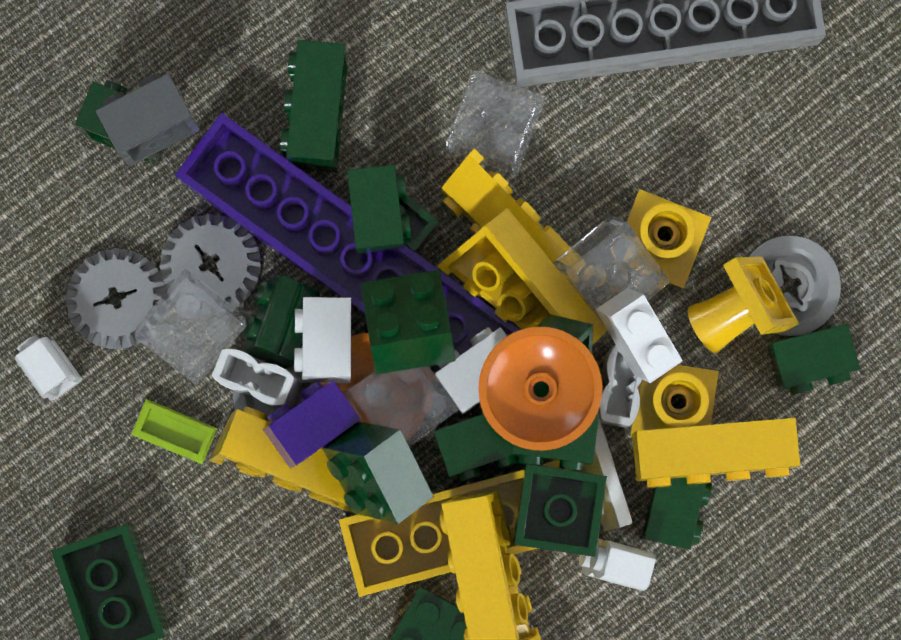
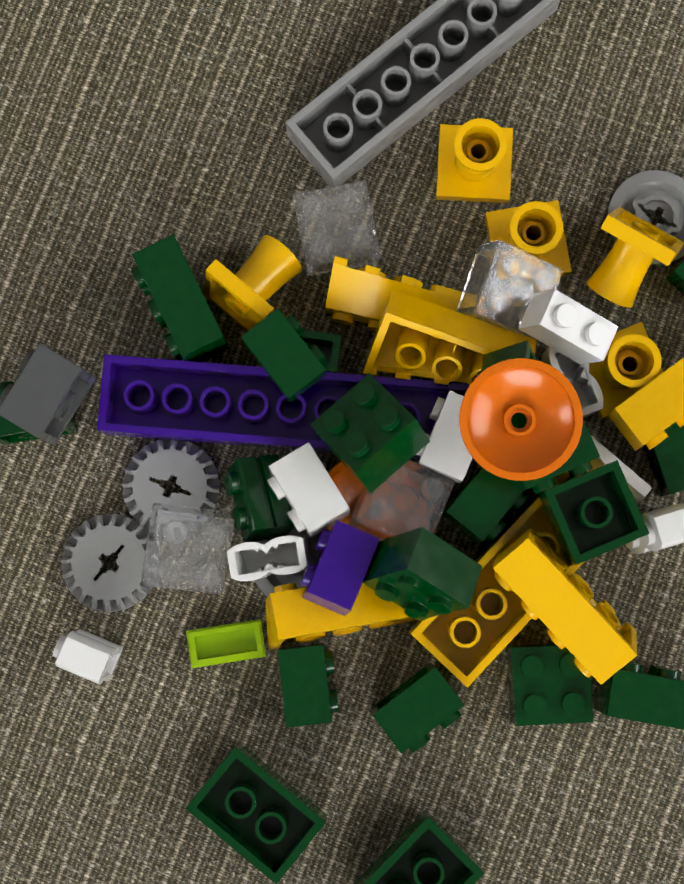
camera: 30 degrees left, 0 degrees up
(222, 510) = (306, 685): none -> dark green brick
(305, 588) = (417, 709): none -> dark green brick
(393, 128) = (246, 292): none -> yellow plant
(652, 157) = (471, 178): none -> yellow plant

